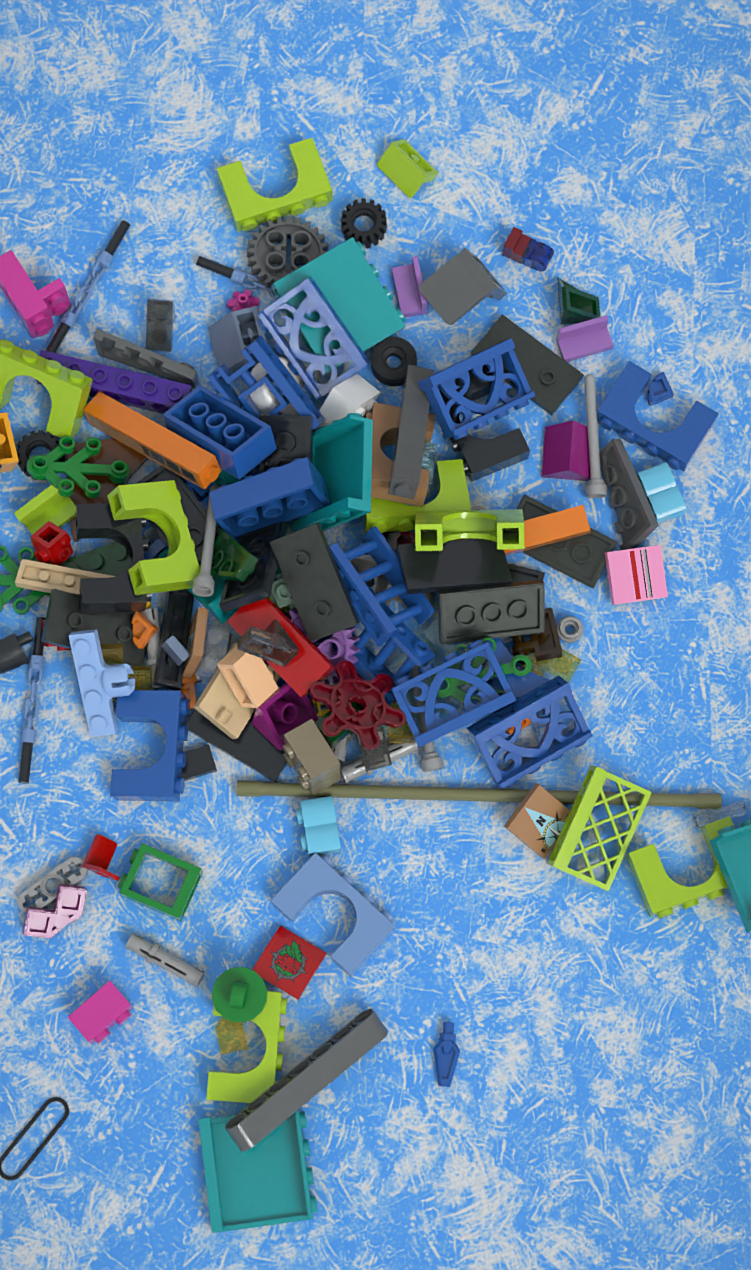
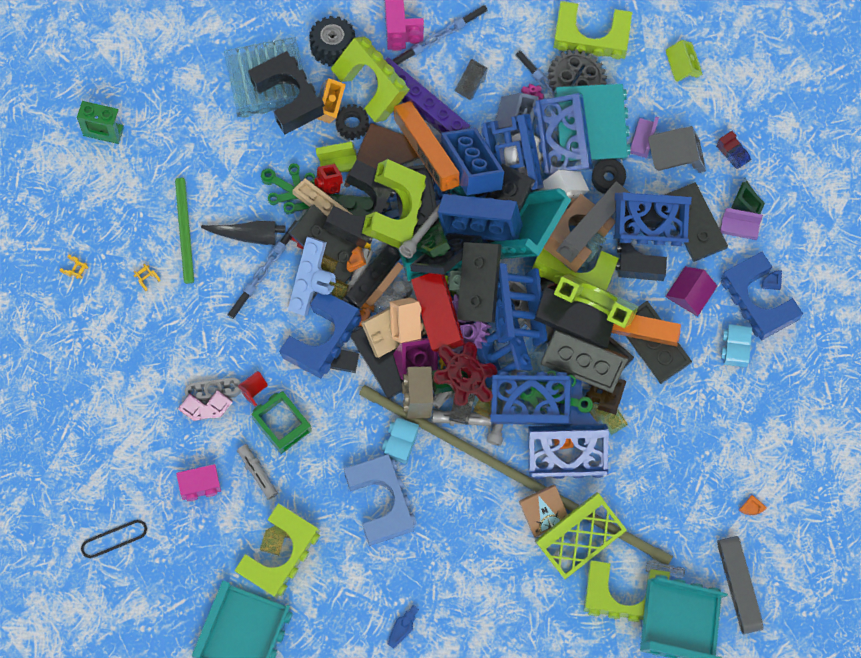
camera: 25 degrees right, 5 degrees down
(75, 468) = (351, 129): green plant -> none
(143, 359) = (447, 93): dark grey wing -> none
(175, 650) = (369, 282): sand blue tile -> none
(239, 994) = (290, 515): green tile -> none
(271, 644) = (429, 306): clear smoke slope -> none
(289, 962) = (334, 515): red slope -> none
(306, 1080) = (304, 592): dark grey beam -> none
(364, 209) = (641, 73): black tyre -> none
(573, 622) = (633, 396): light grey plate -> none
(596, 486) = (697, 320): light grey piece -> none
(627, 496) = (714, 336): dark grey wing -> none
(636, 574) = (693, 388): bright pink slope -> none

